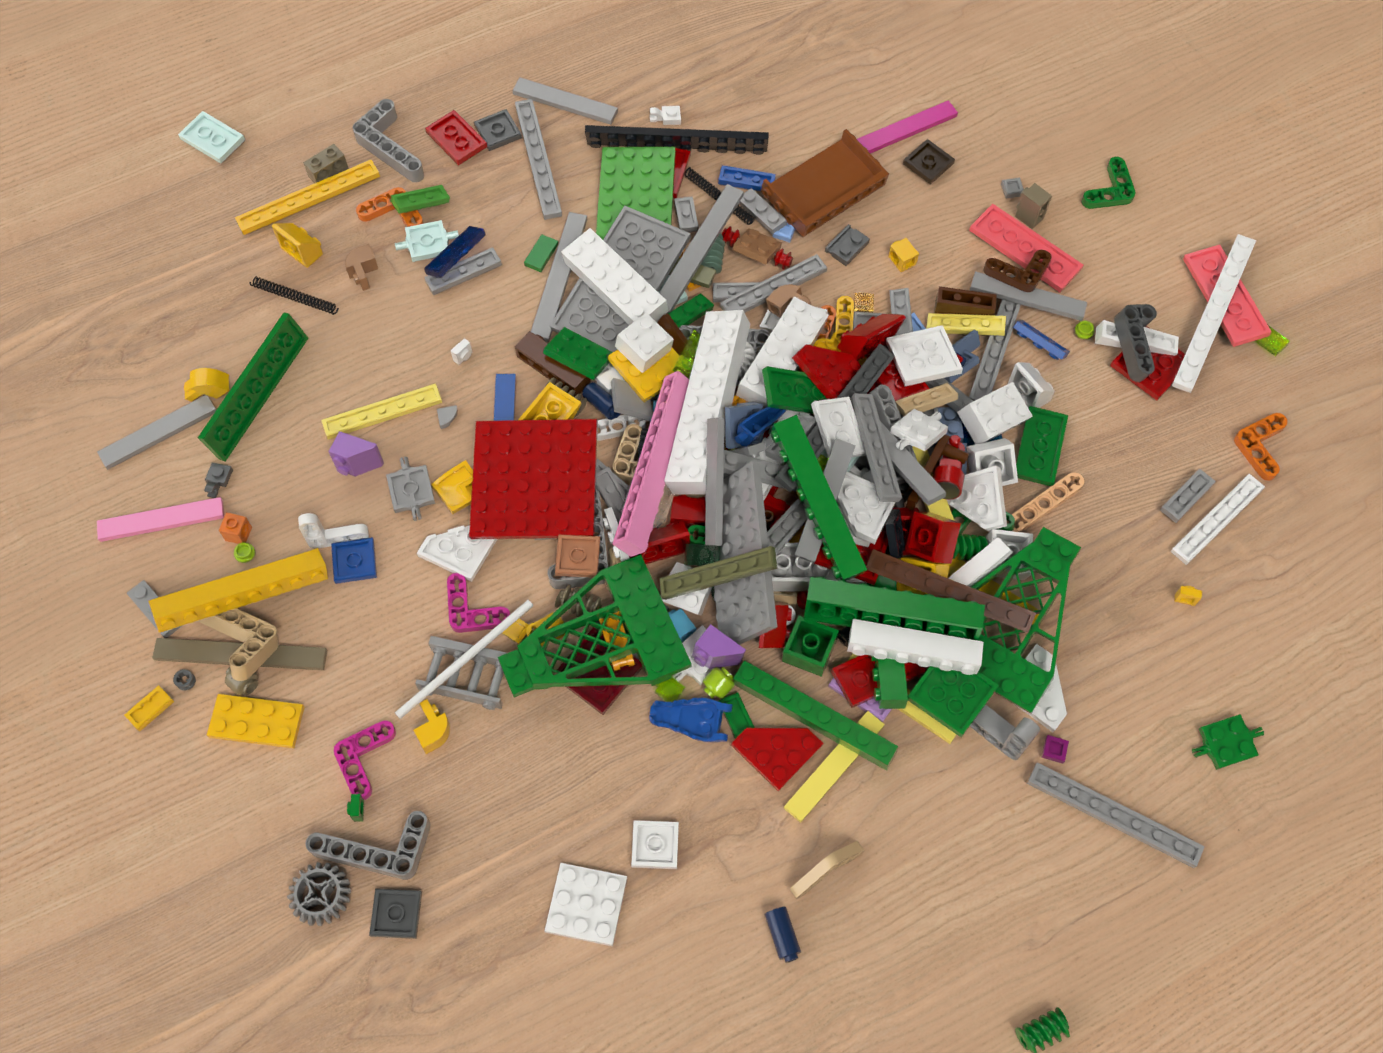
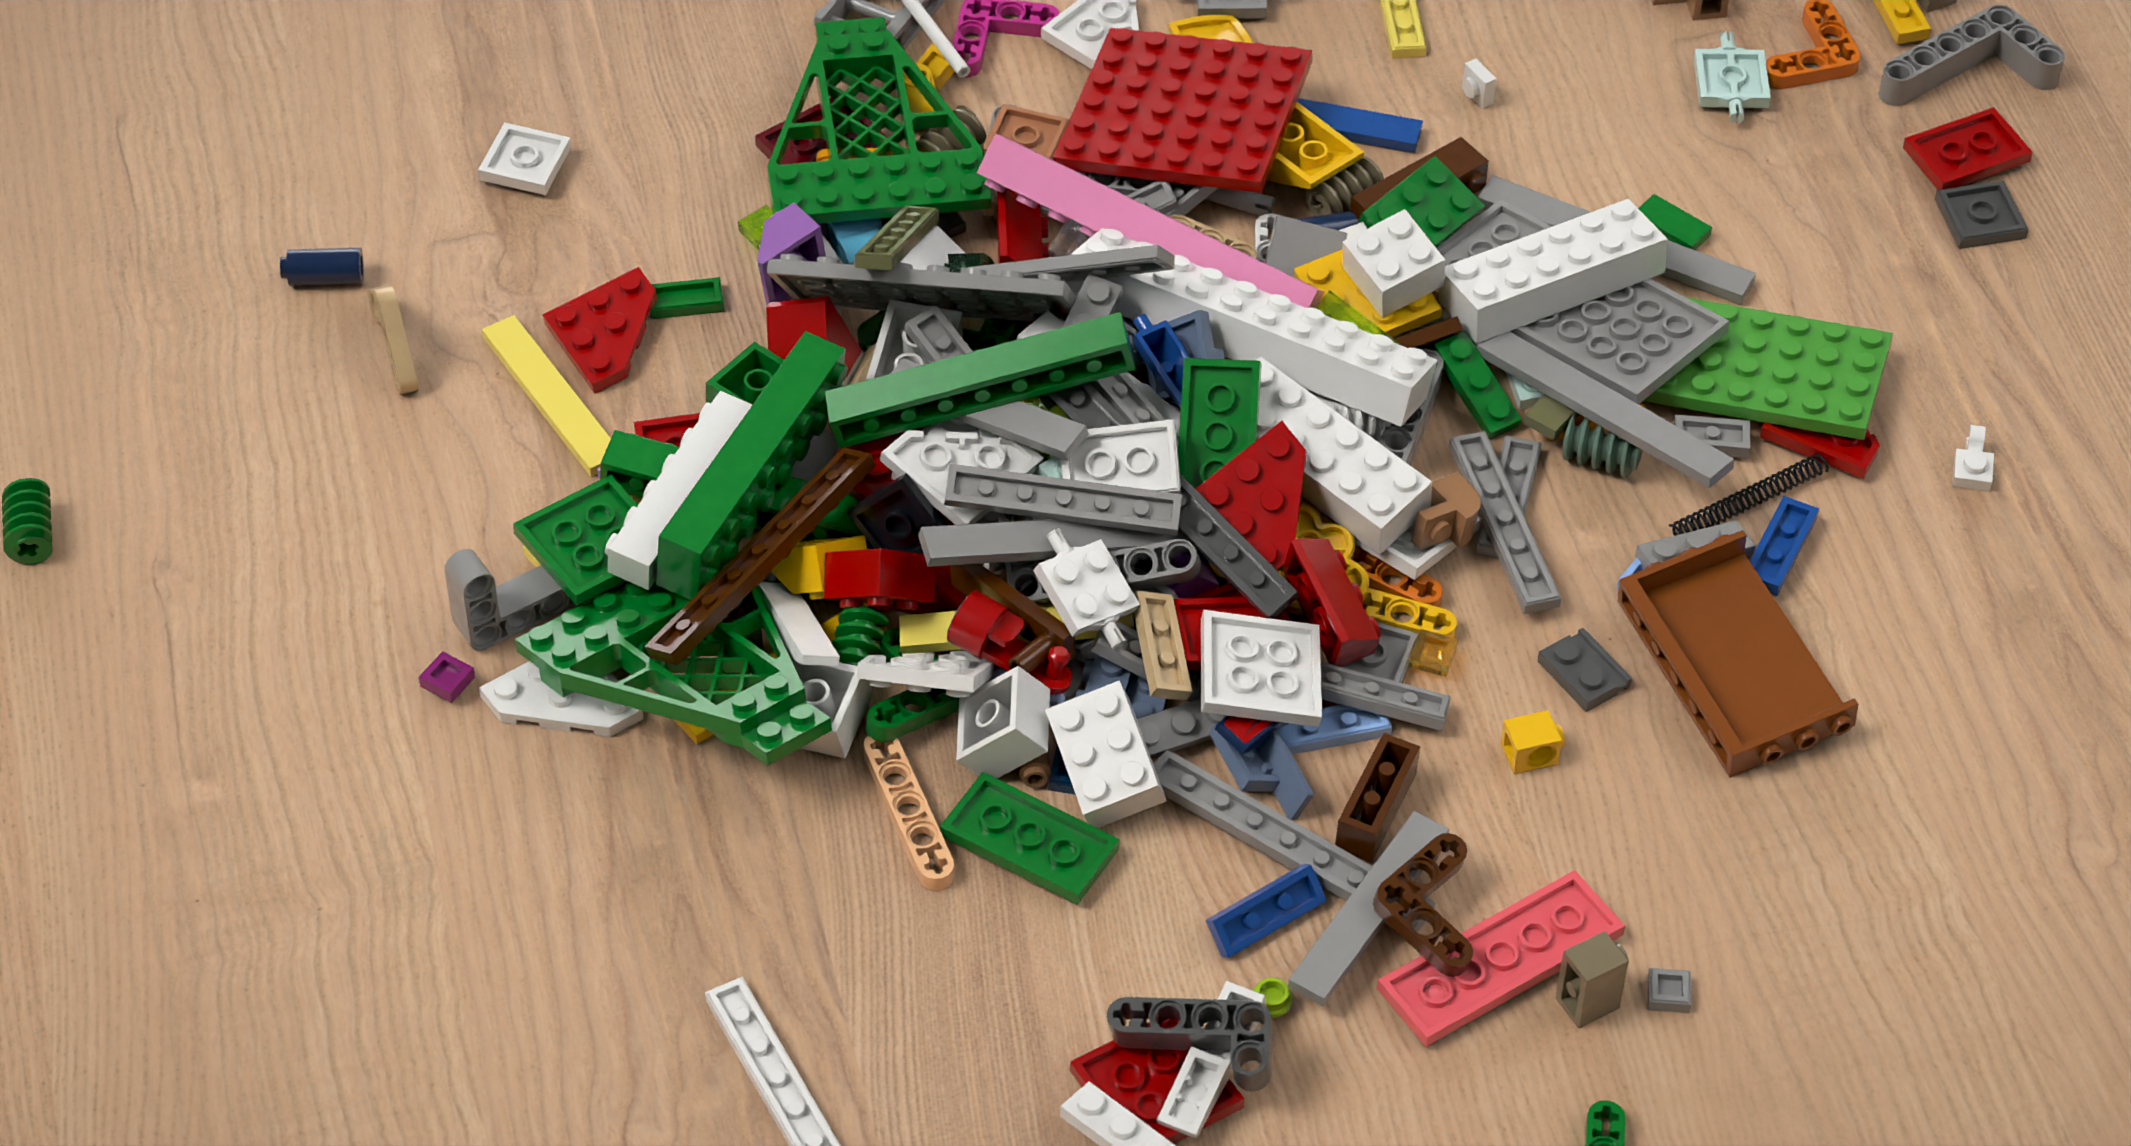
camera: 105 degrees right, 15 degrees down
(420, 199) = (1820, 73): bright green plate -> none
(446, 415) = (1359, 53): light grey tile -> none
(454, 251) = (1691, 100): clear blue plate -> none
(464, 271) = (1653, 114): light grey plate -> none
(538, 159) = (1895, 252): light grey plate -> none
(565, 101) = (2037, 320): light grey tile -> none
(586, 904) = (476, 76): white plate -> none
(679, 138) = (1890, 450): black plate -> none
(694, 718) = (699, 237): blue animal -> none
(718, 682) = (742, 278): lime head -> none
(757, 246) = (1605, 519): medium nougat plate -> none
(815, 715) = (635, 373): green brick -> none
(908, 127) = (1871, 849): dark pink tile -> none
(928, 161) = (1766, 854): dark brown plate -> none
(967, 323) = (1318, 822): light yellow tile -> none
(1031, 385) = (1160, 846): white slope -> none
(1116, 815) = (299, 724): light grey plate -> none
(1187, 495) = (841, 1040): light grey plate -> none
(1188, 595) = (637, 961): yellow plate -> none
(1228, 742) = (347, 932): green plate -> none

